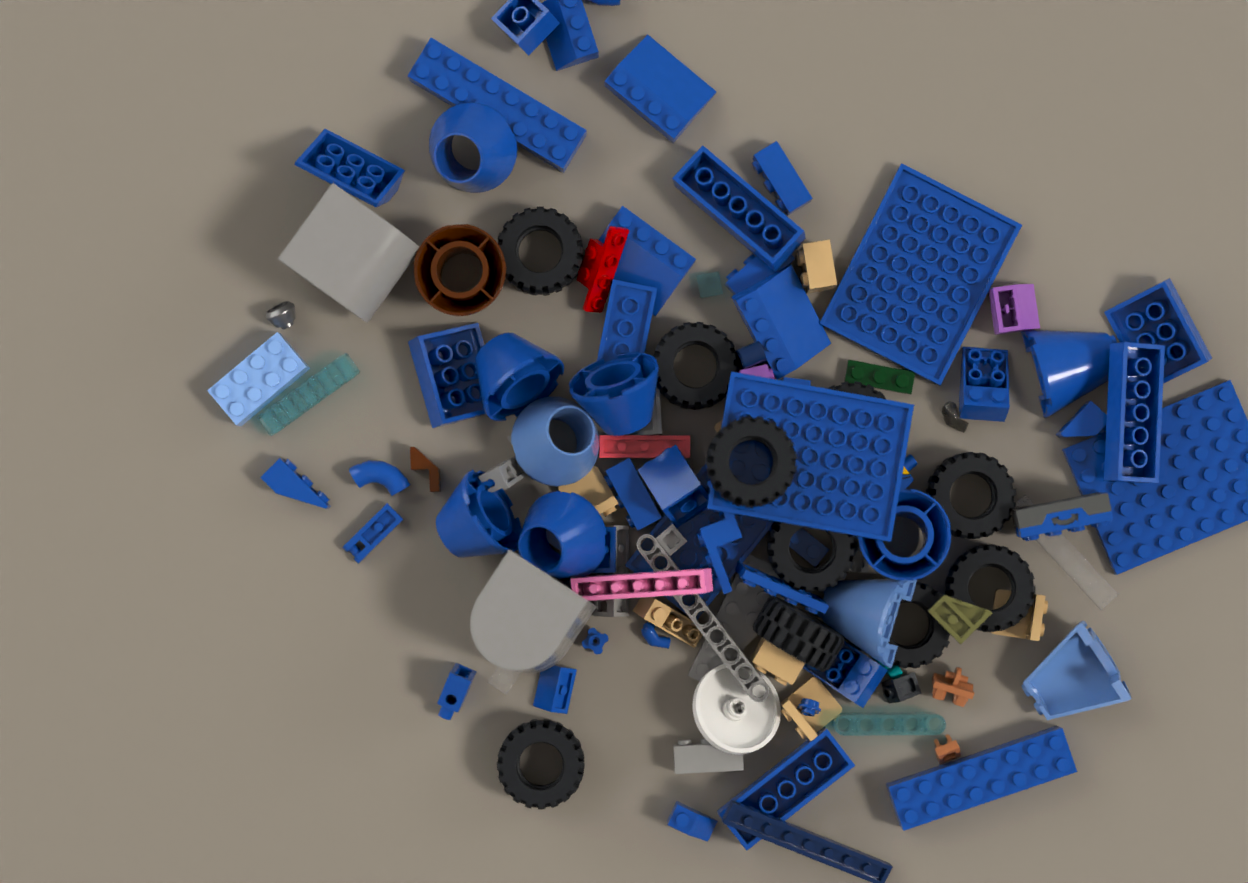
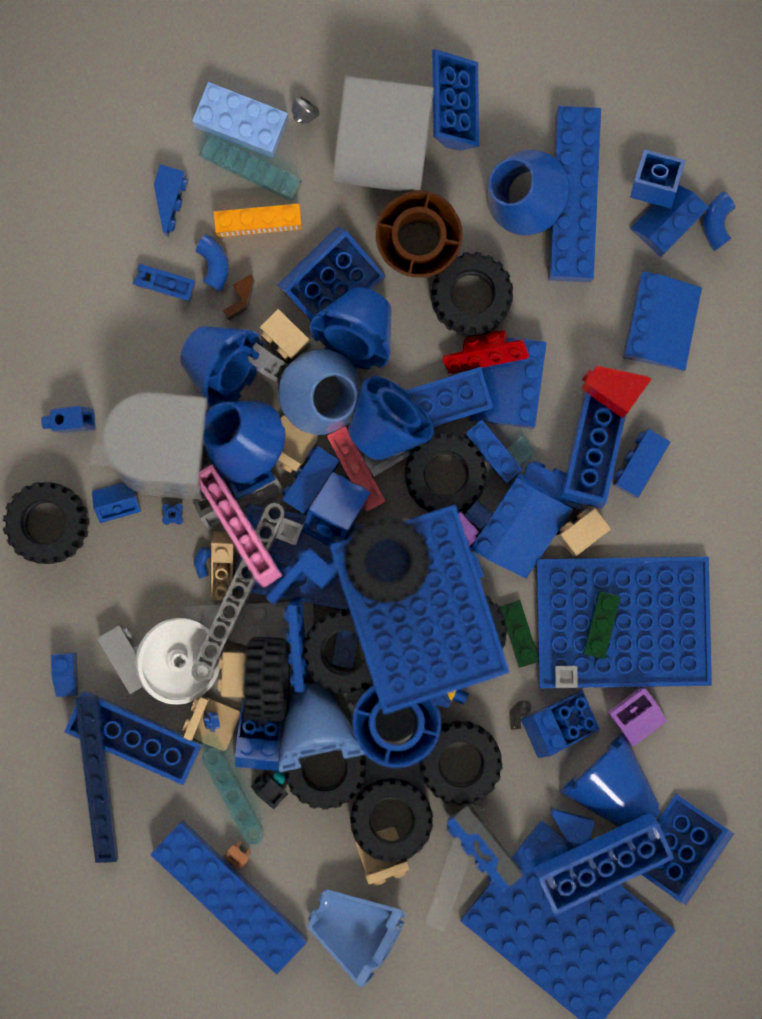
camera: 60 degrees right, 0 degrees up
(362, 413) = (258, 220): none -> light orange brick
(485, 447) = (284, 335): none -> tan brick
(698, 310) = (493, 452): none -> blue brick
(701, 165) = (615, 388): none -> red slope
(912, 296) = (601, 625): none -> dark green plate
(943, 355) = (565, 676): none -> light grey plate
(953, 683) = (295, 832): nougat hips -> none
(958, 617) = (352, 805): olive wing -> none

